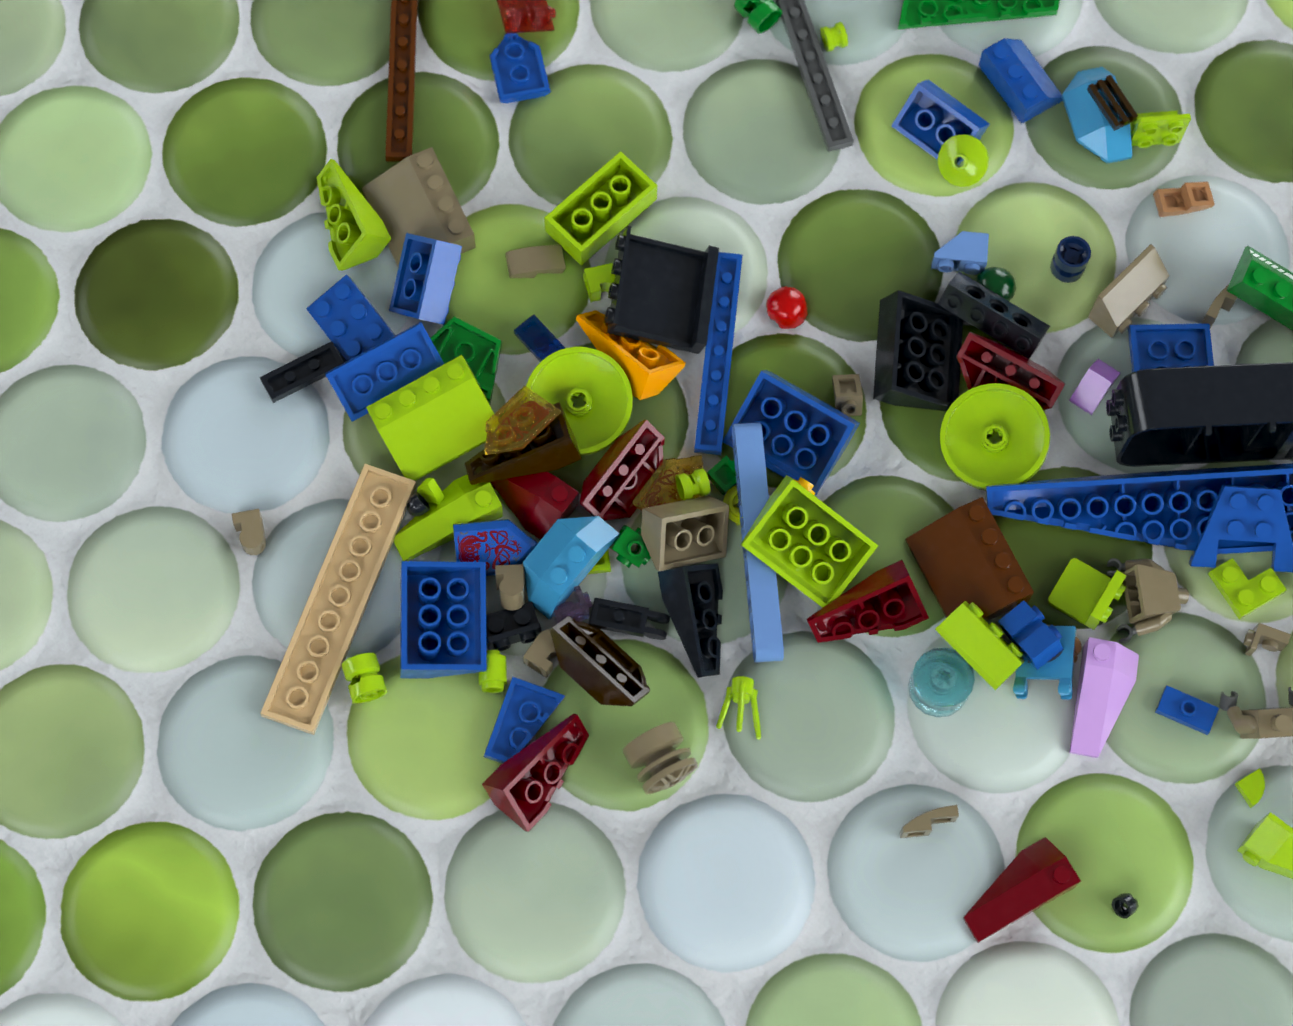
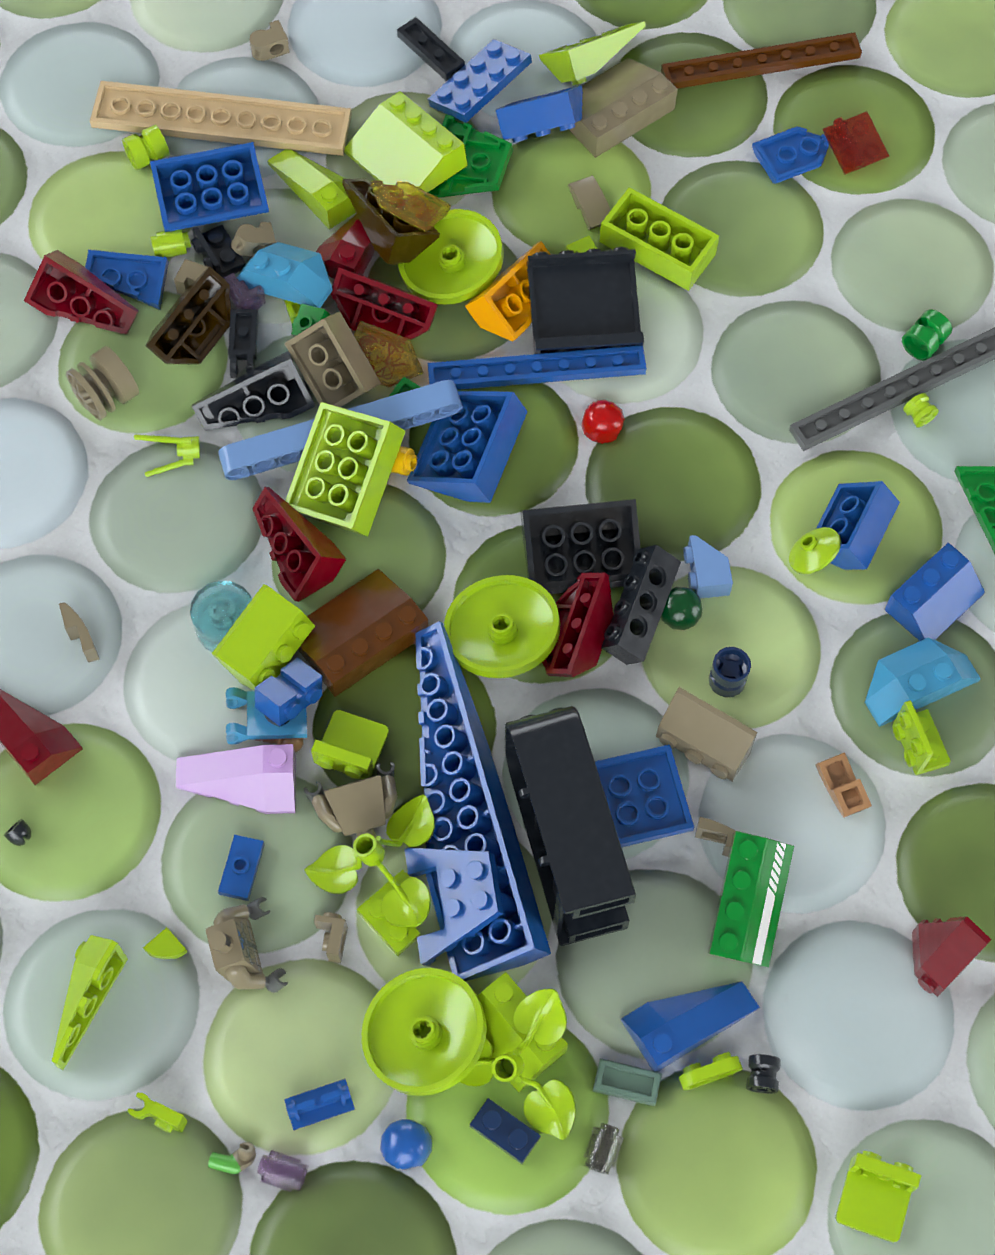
camera: 80 degrees right, 5 degrees down
(384, 369) = (442, 97): blue plate -> none
(417, 505) = (319, 154): black hinge -> none
(430, 491) = (333, 160): lime tile -> none
(492, 542) = (290, 213): blue tile -> none
(537, 338) = (512, 219): clear blue plate -> none
(693, 484) = (384, 361): lime wheel -> none
(848, 394) = (520, 487): dark tan bracket -> none
(1094, 386) = (600, 723): medium lavender slope -> none
(1110, 83) = (939, 660): dark brown tile -> none
(1202, 627) = (407, 903): none -> lime plant

